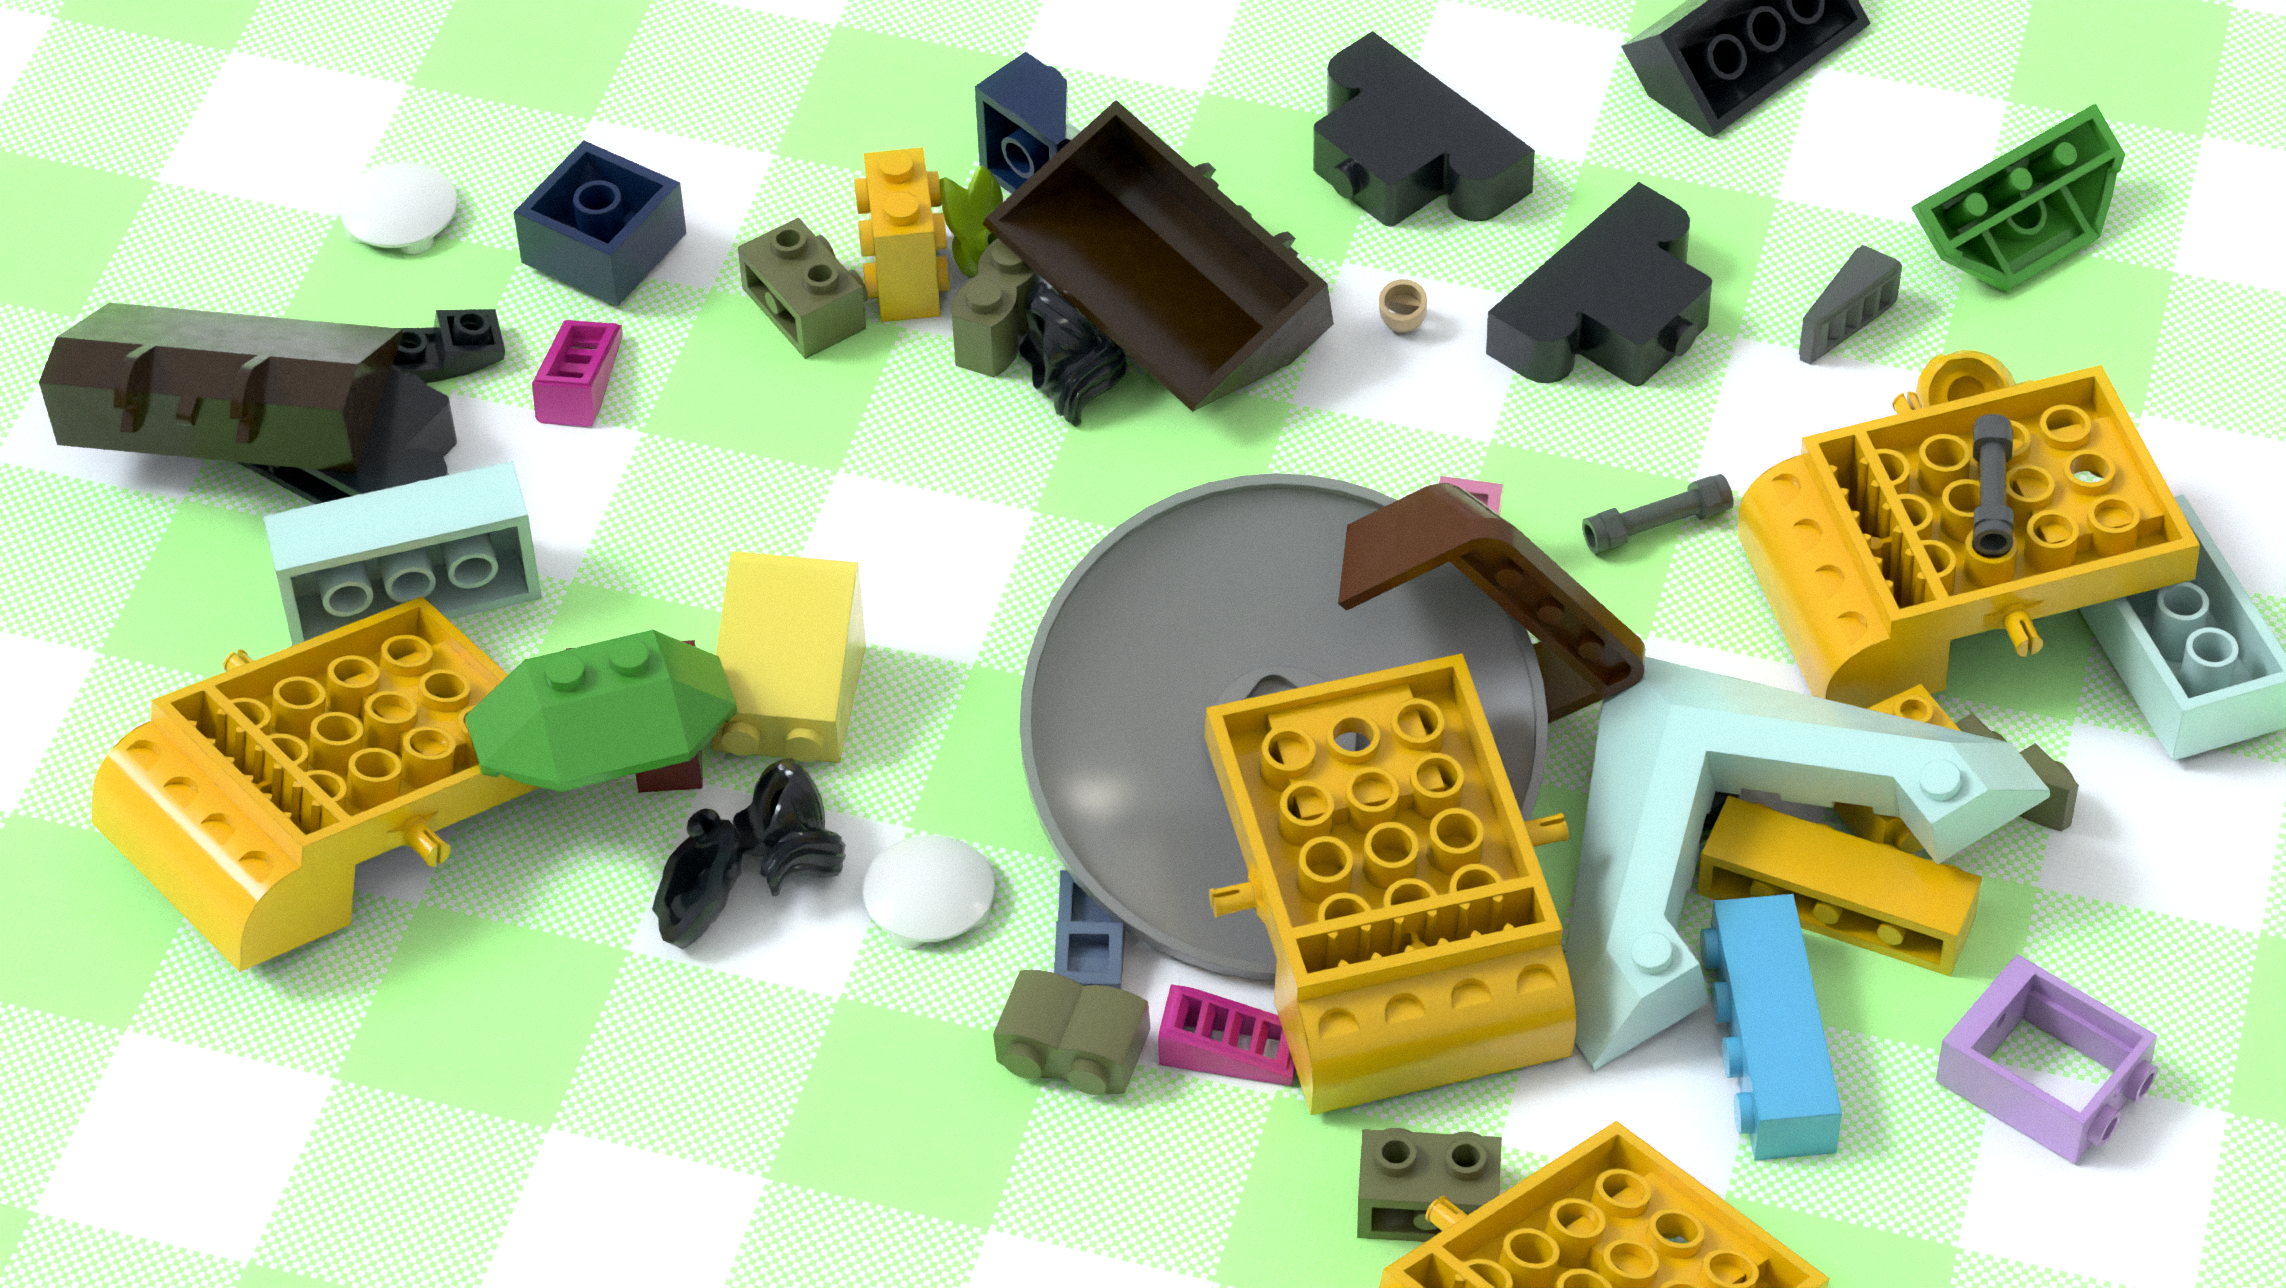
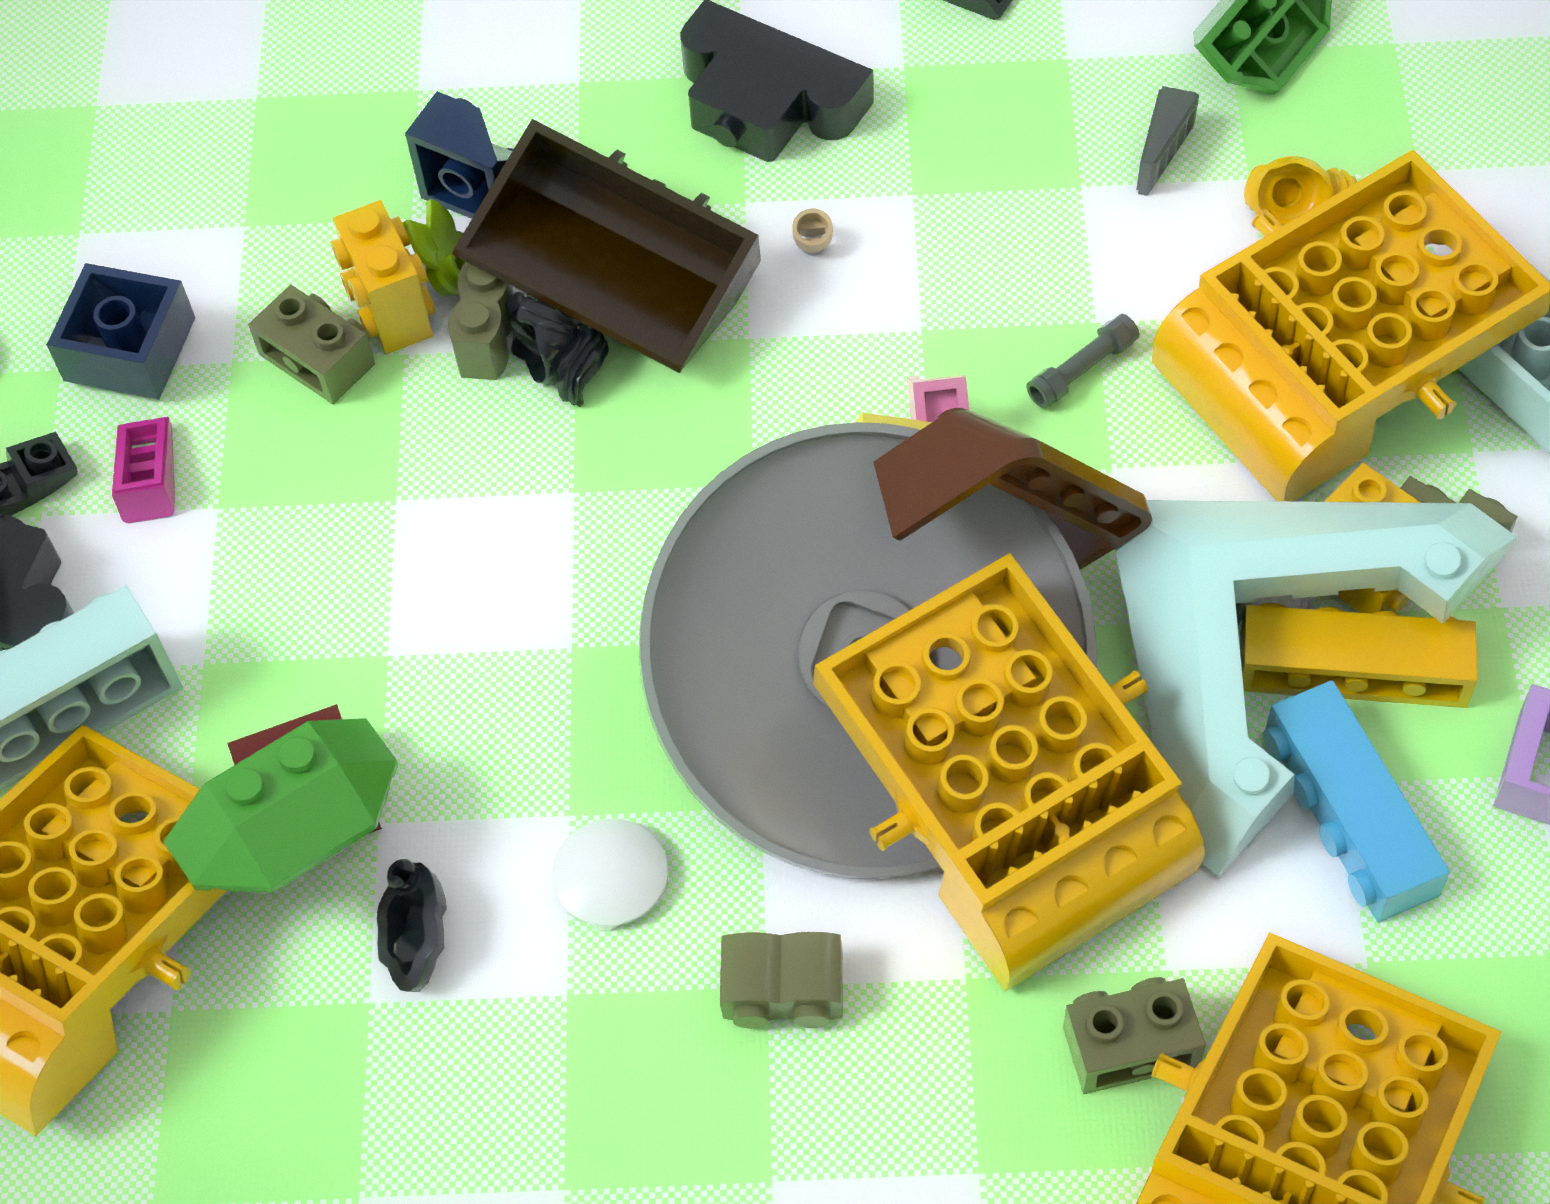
camera: 15 degrees left, 10 degrees up
(789, 827) = (471, 851): black hair -> none
(790, 655) = (421, 691): light yellow slope -> none
(1087, 939) = (761, 884): sand blue slope -> none
(1199, 1053) = (895, 962): dark pink slope -> none
(1608, 294) = (975, 181): black brick -> none
(1993, 519) = (1389, 313): dark grey bar -> none

